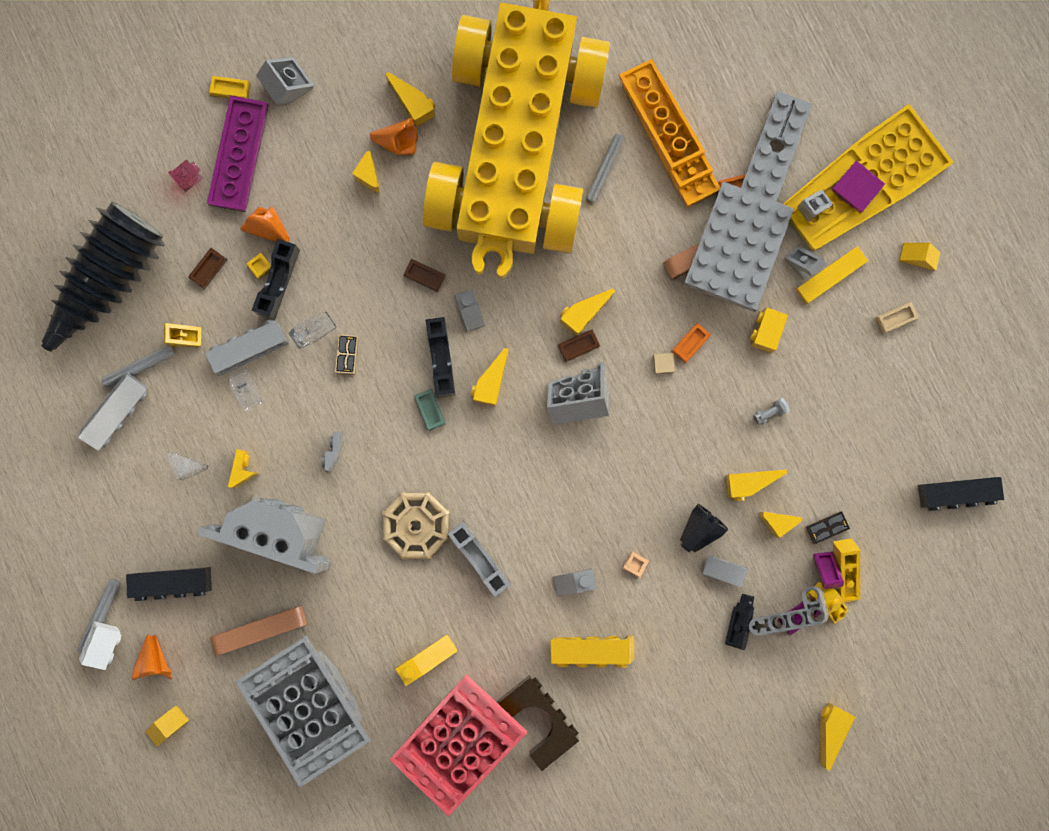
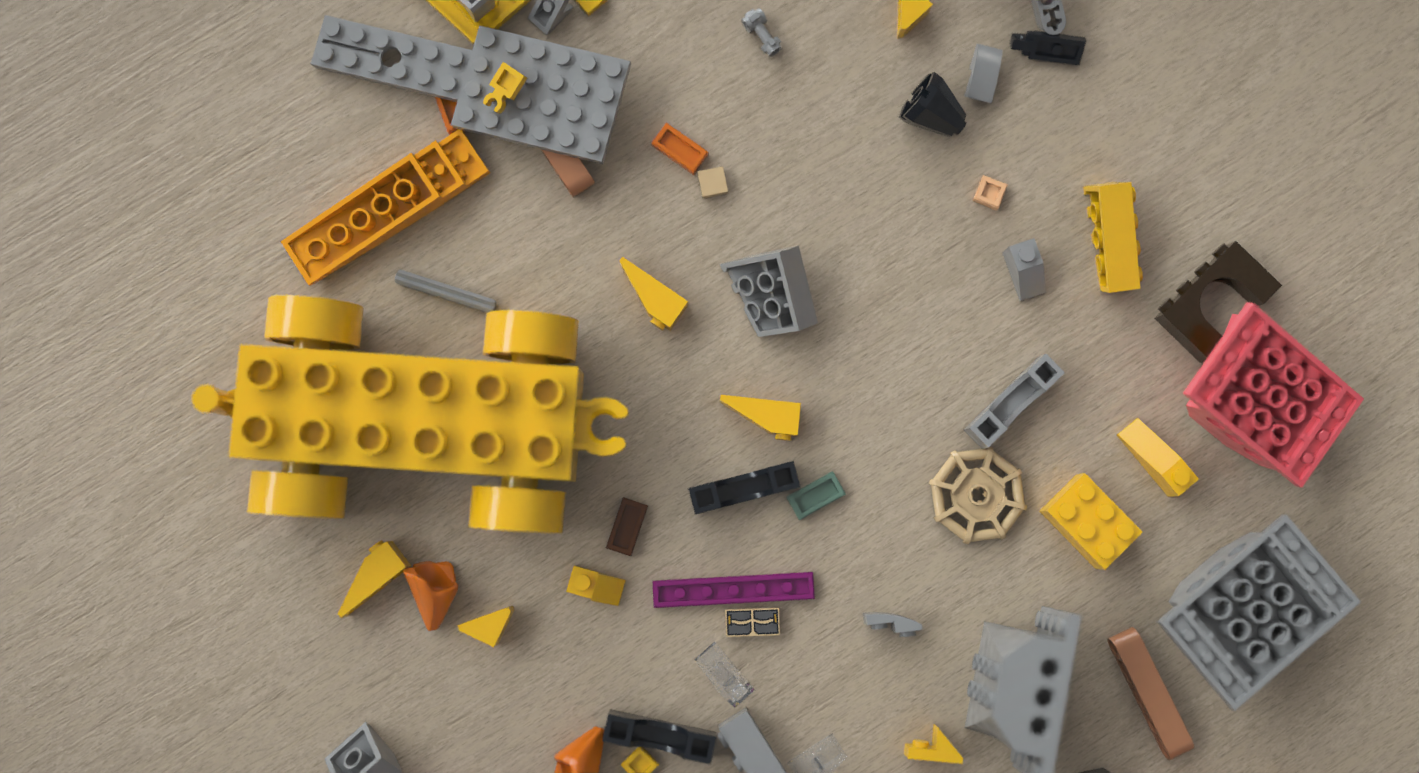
camera: 90 degrees left, 0 degrees up
(371, 344) = (733, 589): none -> magenta tile
(385, 249) = (596, 585): none -> yellow slope
(386, 604) = (1091, 521): none -> yellow brick
(470, 310) = (669, 456): light grey slope -> none
(578, 345) = (701, 300): reddish brown tile -> none
(746, 221) = (506, 84): none -> yellow plate
(749, 483) = (863, 51): yellow slope -> none
(768, 330) = (651, 45): yellow brick -> none

